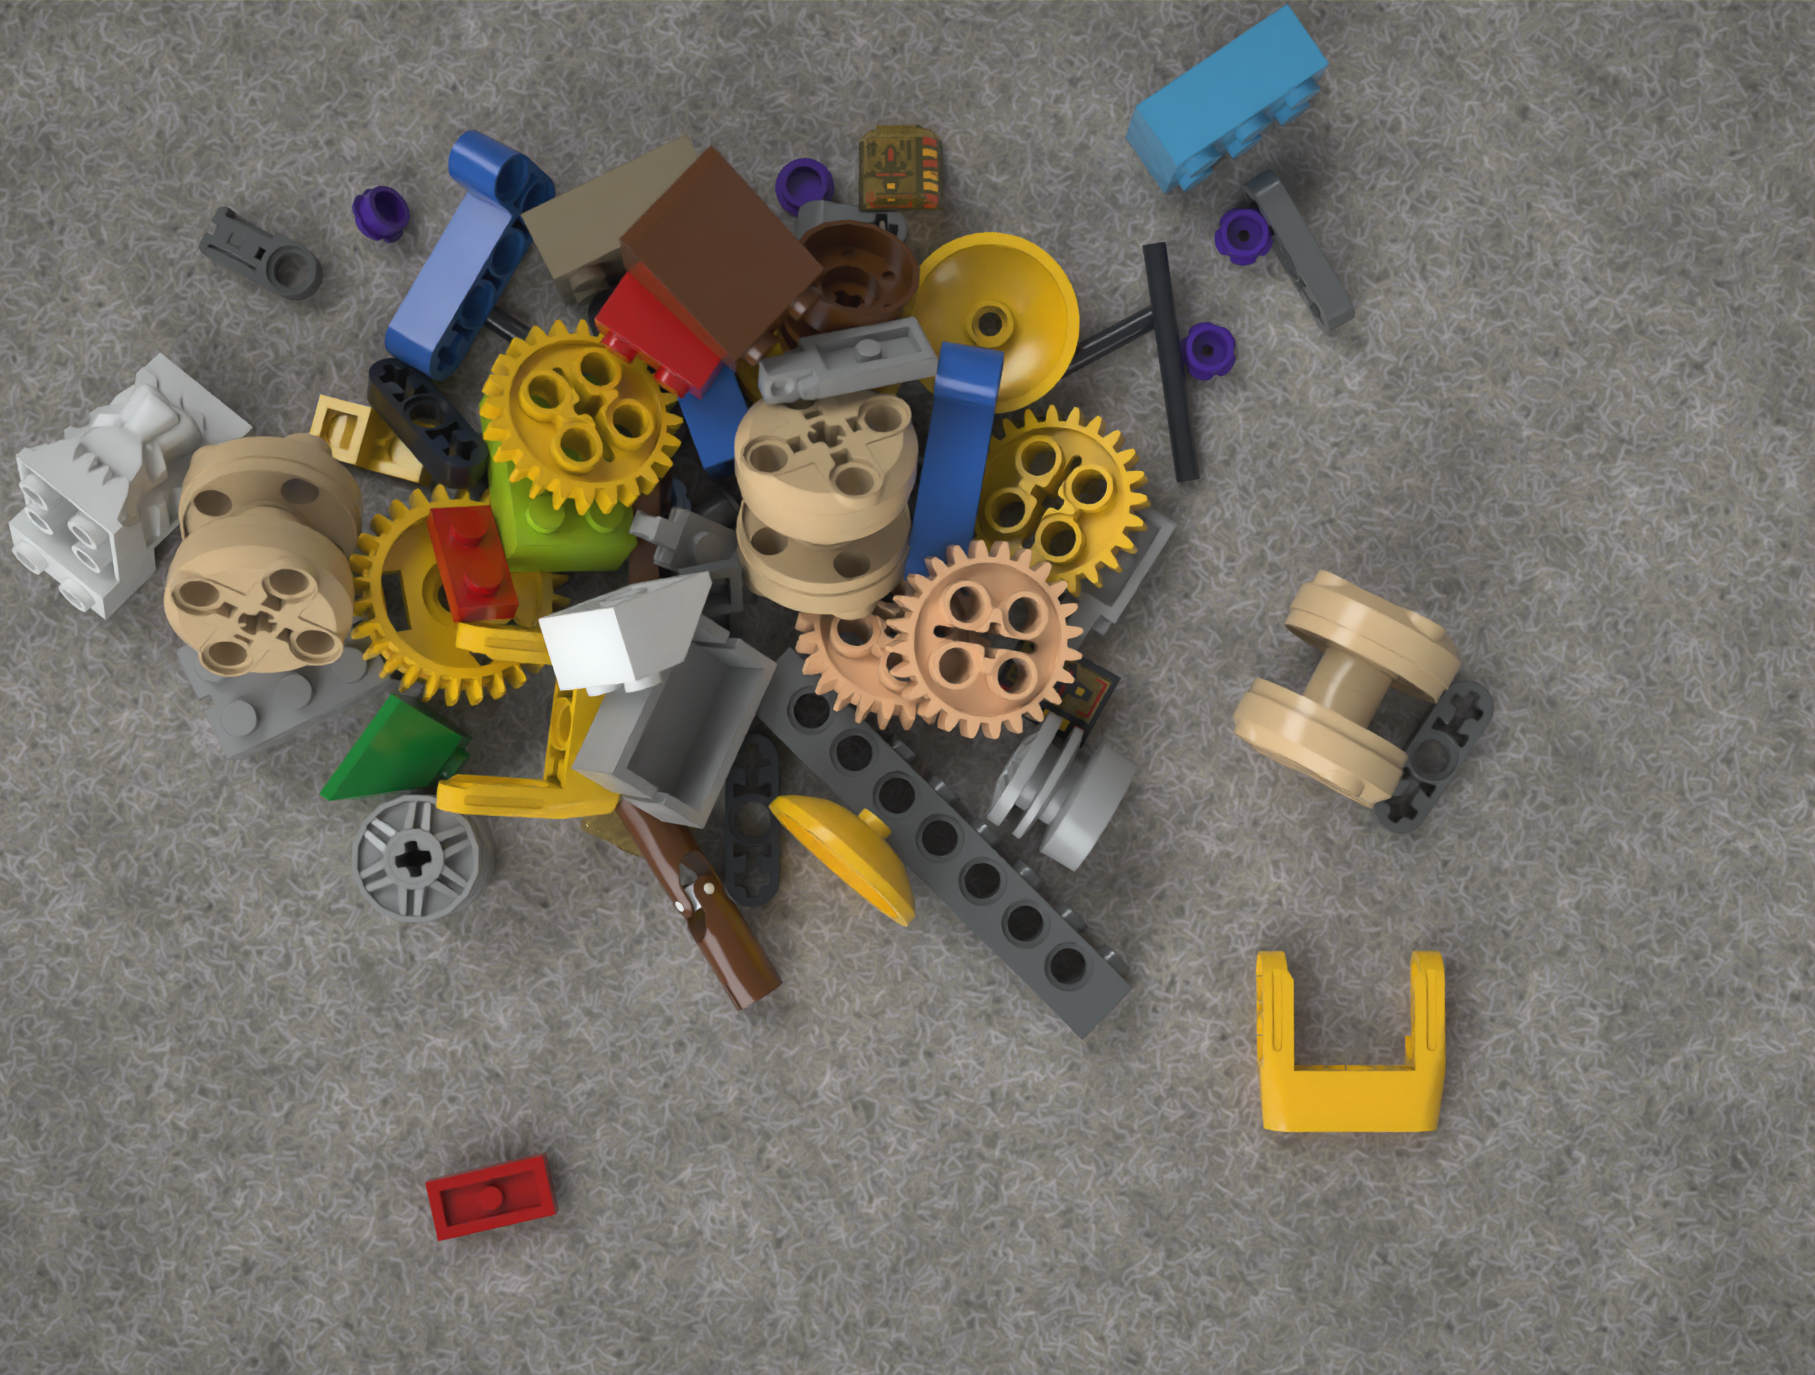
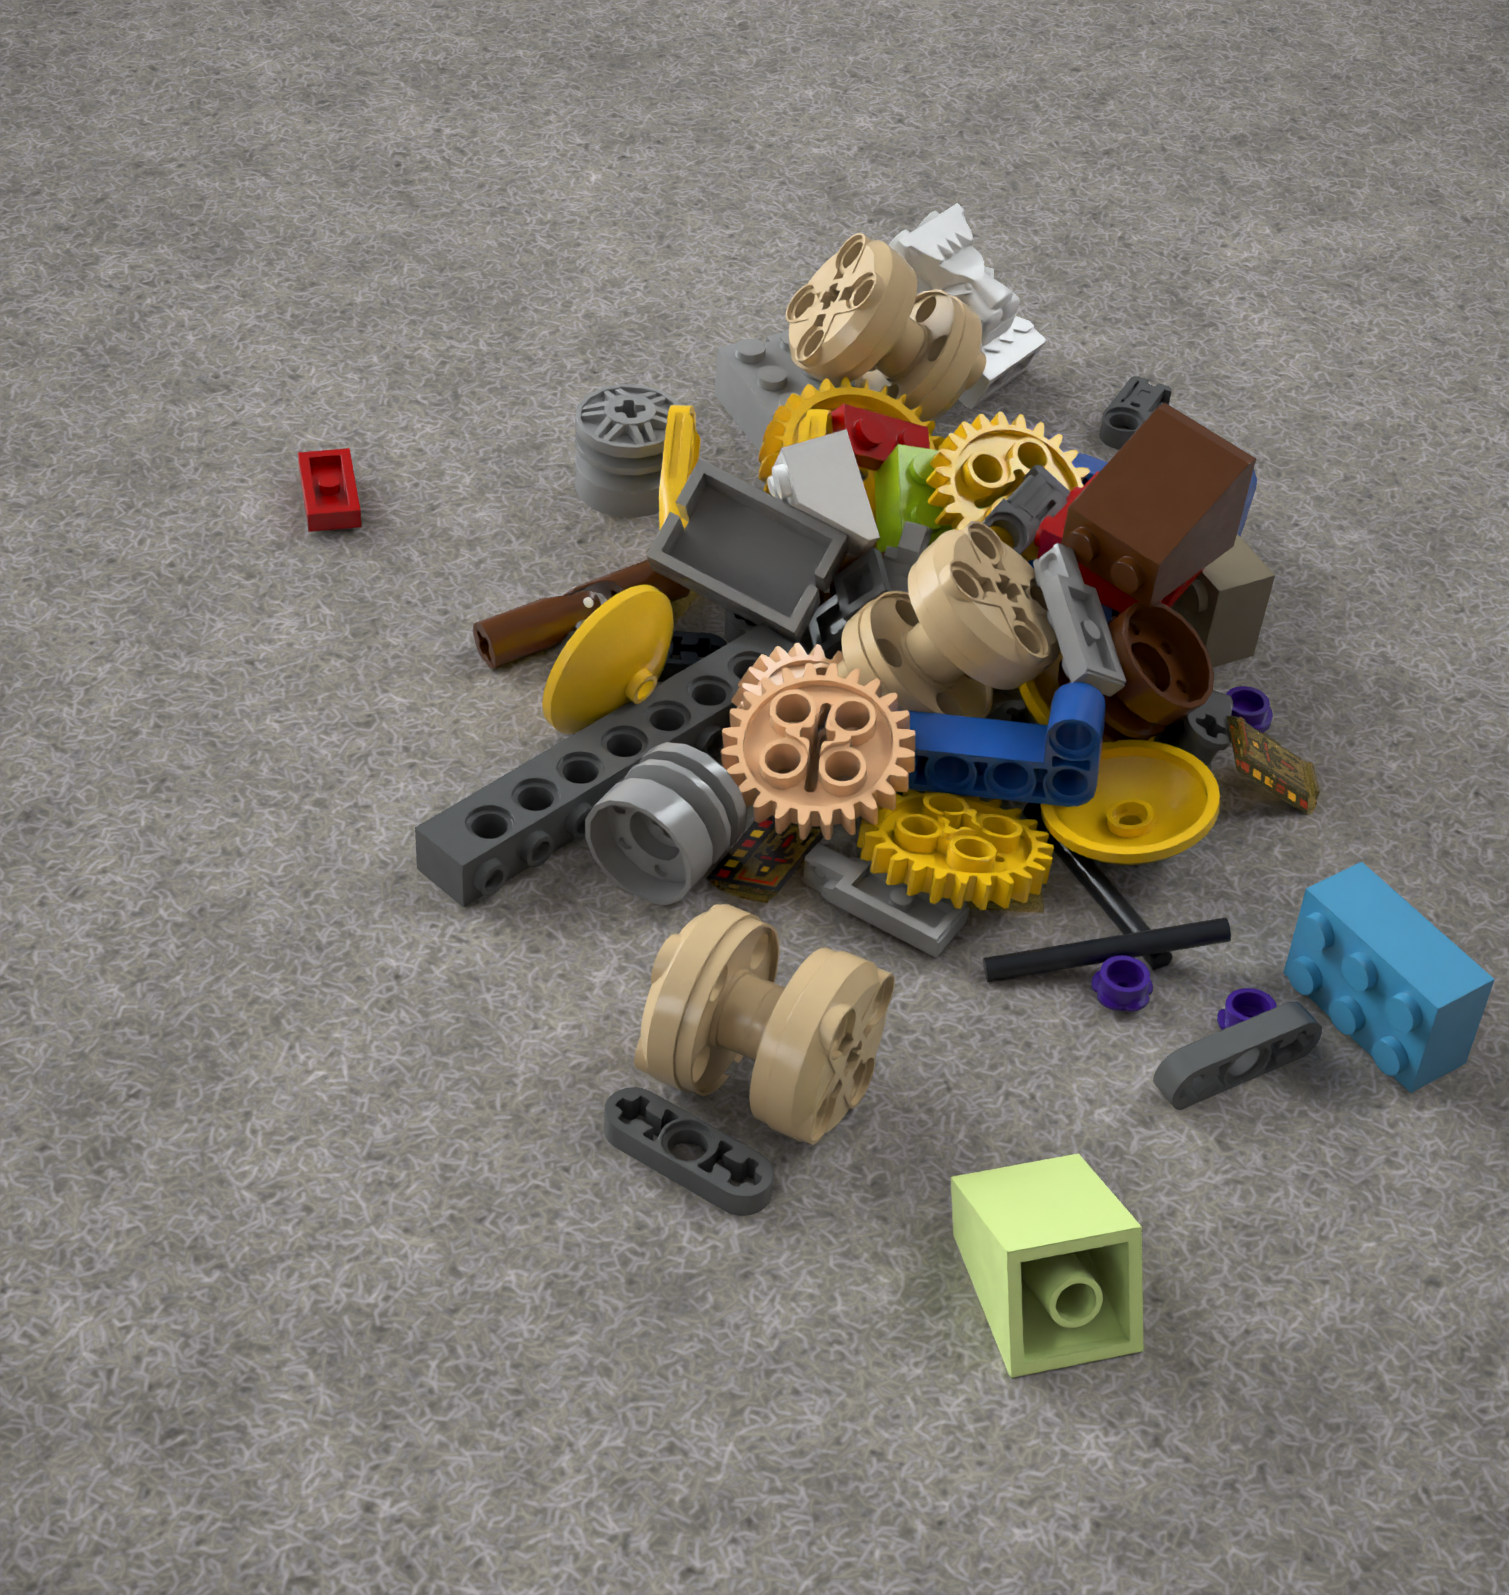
camera: 90 degrees right, 45 degrees down
(400, 752) = (727, 420): green slope -> none
(643, 406) = (1028, 506): none -> dark grey piece
(1362, 1095) = (319, 1050): yellow connector -> none
(1546, 445) = (1051, 1262): none -> yellowish green slope

